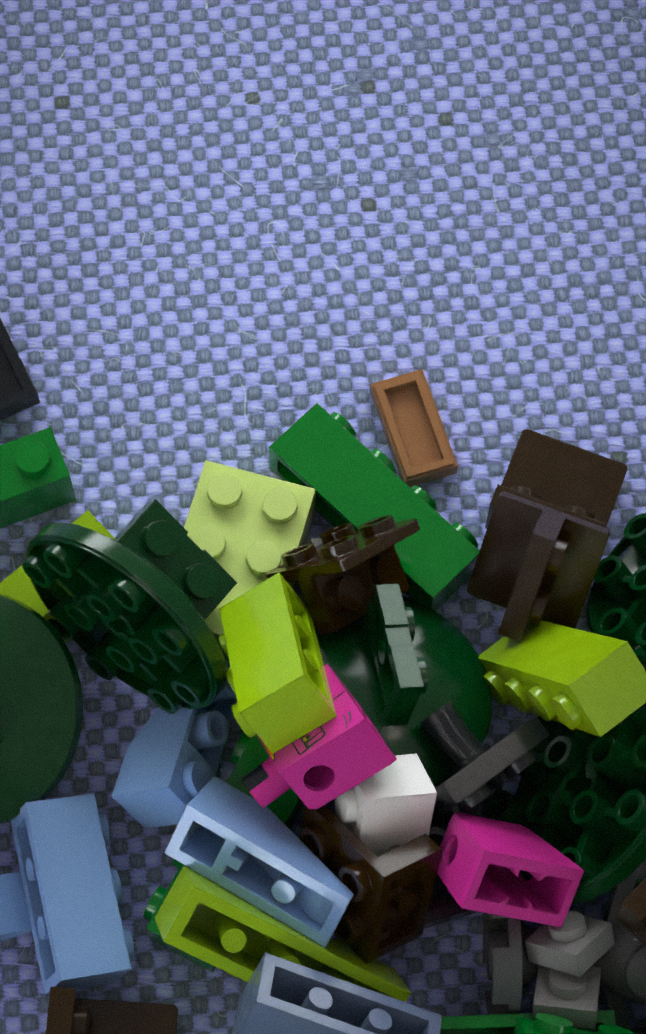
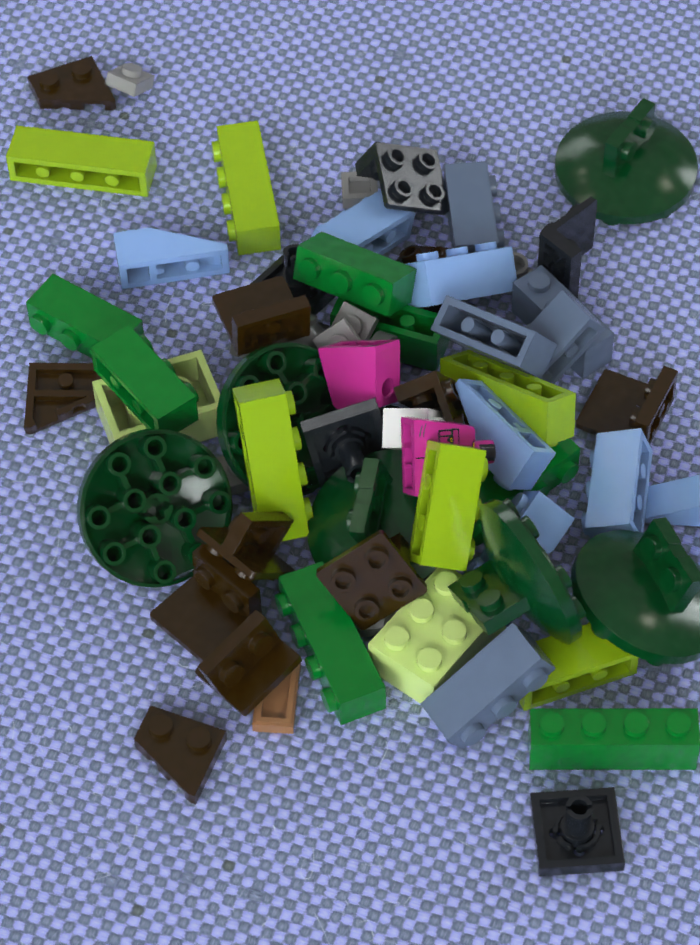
camera: 155 degrees left, 15 degrees down
(151, 464) = (488, 686): none -> sand blue brick
(464, 427) = (248, 664): none -> dark brown bracket
(495, 312) = (180, 748): none -> dark brown wing

